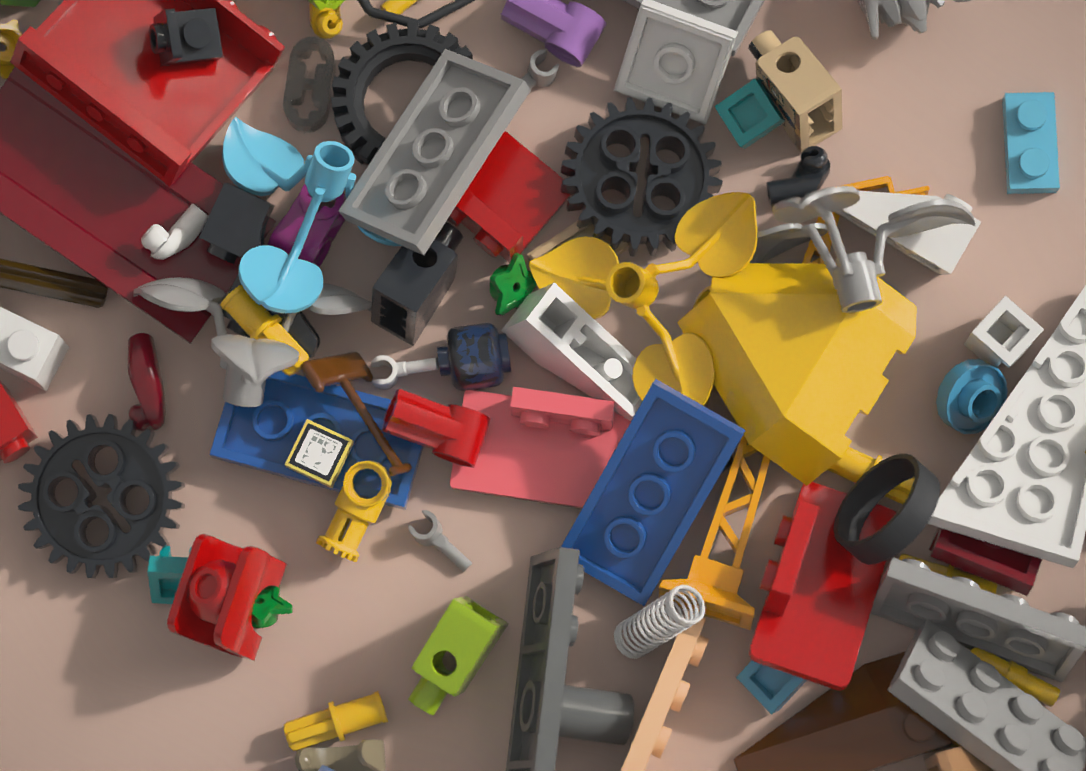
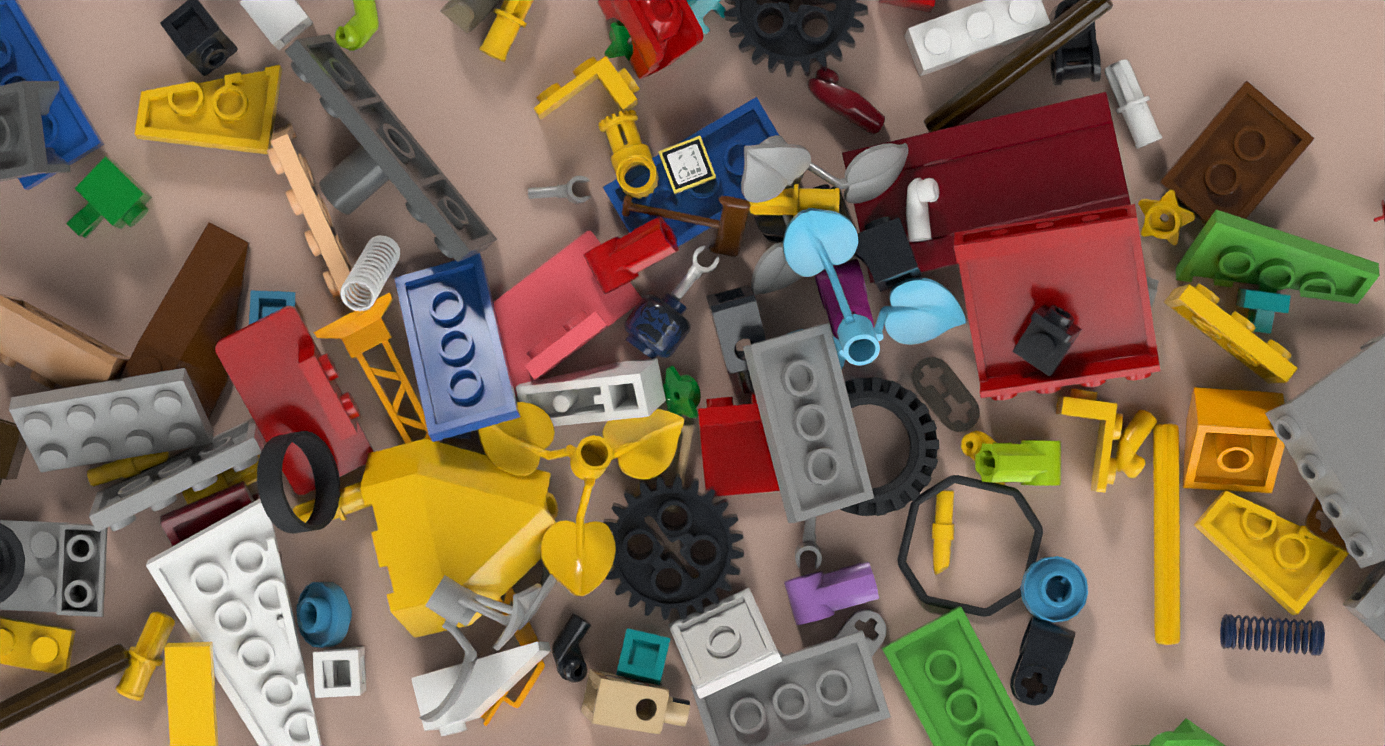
camera: 125 degrees right, 10 degrees up
(307, 576) = (618, 84): none -> yellow bracket
(468, 634) = (478, 143): lime torso -> none

